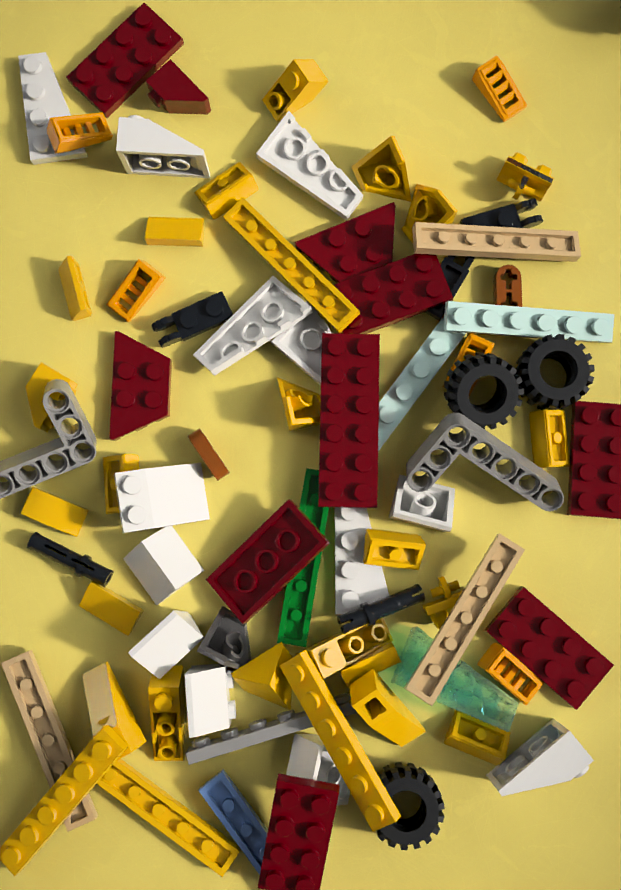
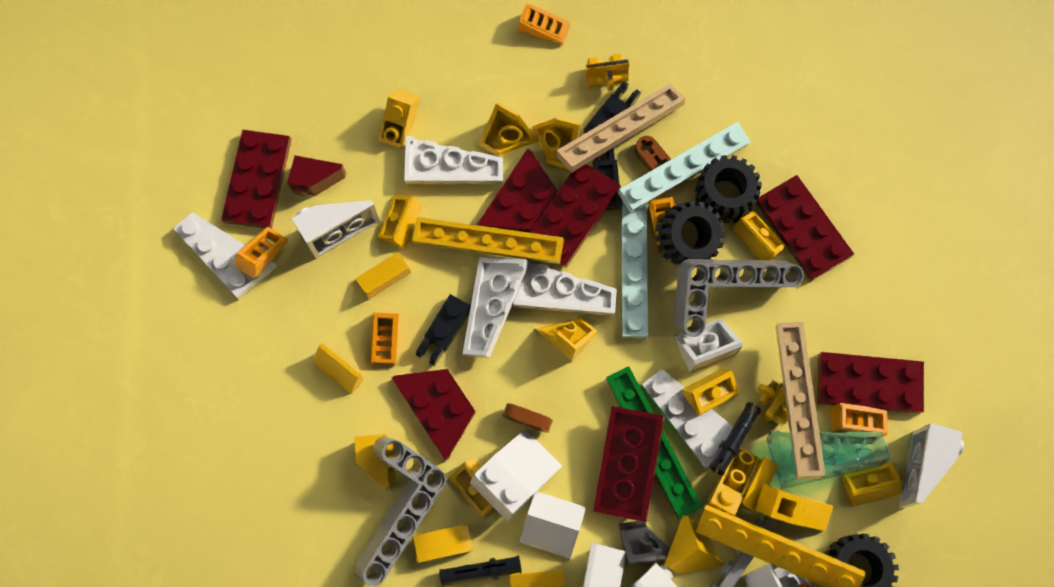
camera: 35 degrees left, 10 degrees down
(349, 420) = (612, 321): dark red plate -> none

